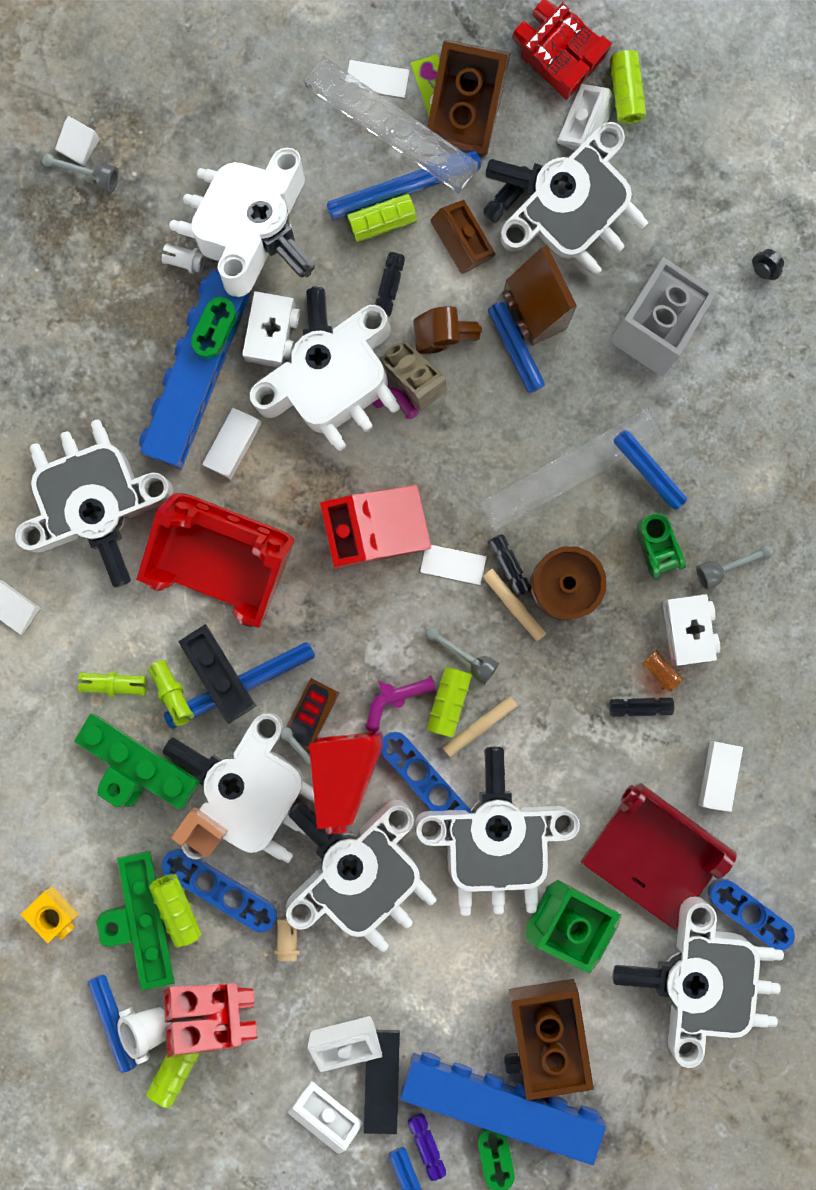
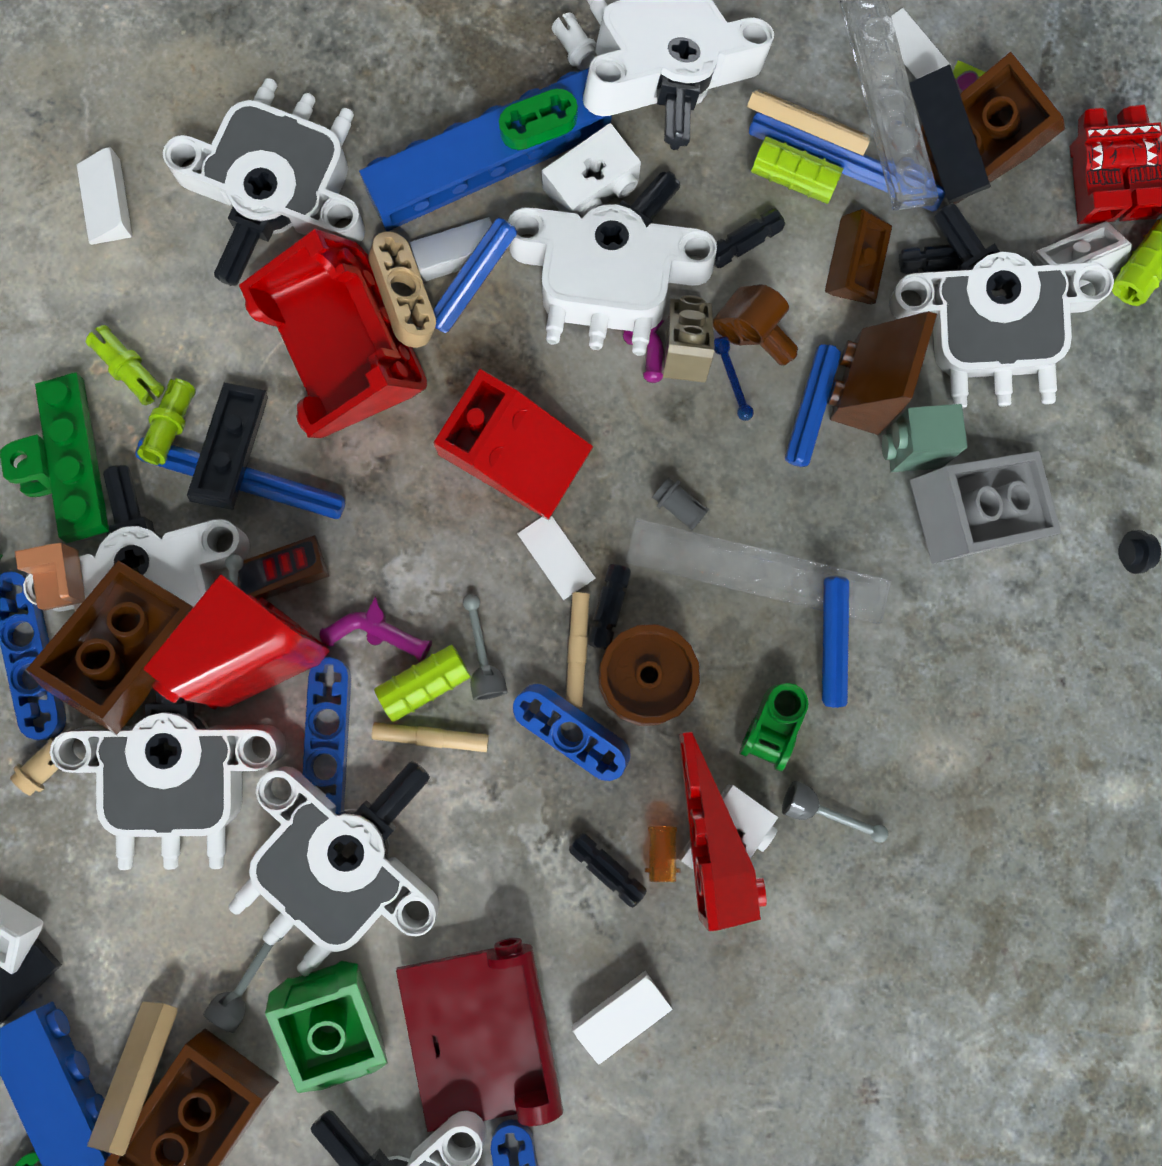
camera: 35 degrees right, 5 degrees down
(233, 508) = (399, 306): none -> tan beam
(260, 451) = (473, 273): none -> blue axle
(272, 837) = (106, 644): none -> reddish brown slope
(363, 182) = (809, 121): none -> tan tile
(450, 118) = (949, 134): none -> black tile
(481, 385) = (722, 347): none -> clear blue hinge
(495, 471) = (680, 503): none -> dark grey pin
(498, 1045) = (133, 1078): none -> tan tile
(510, 966) = (228, 1007): none -> dark grey hinge
(566, 660) = (590, 728): none -> blue beam
(596, 312) = (925, 438): none -> sand green brick
(705, 650) = (723, 872): none -> red wedge

